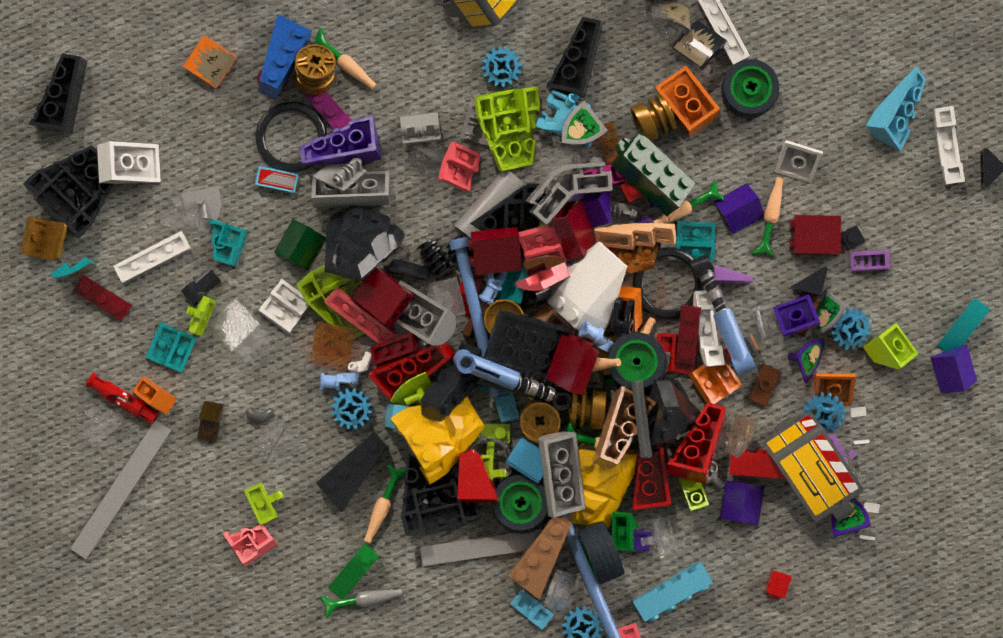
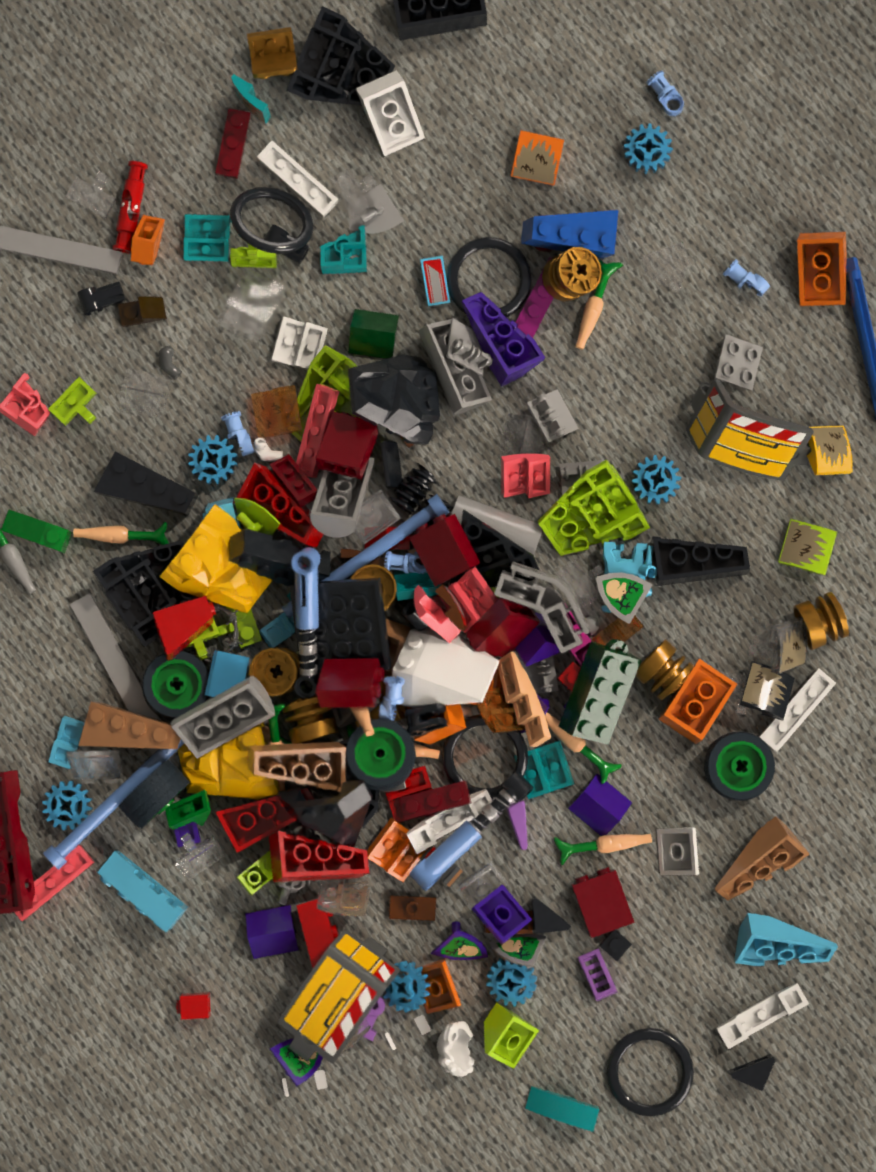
camera: 65 degrees right, 0 degrees up
(186, 451) = (99, 298): none -> black piece
(192, 307) = (264, 245): none -> black wedge
(641, 419) = (315, 783): dark grey axle -> none
(824, 93) = (767, 851): none -> medium nougat wedge
(887, 394) = (454, 1049): none -> white hair
(954, 370) = (509, 1116): dark purple slope -> none
(963, 279) = (613, 1078): none -> black wedge

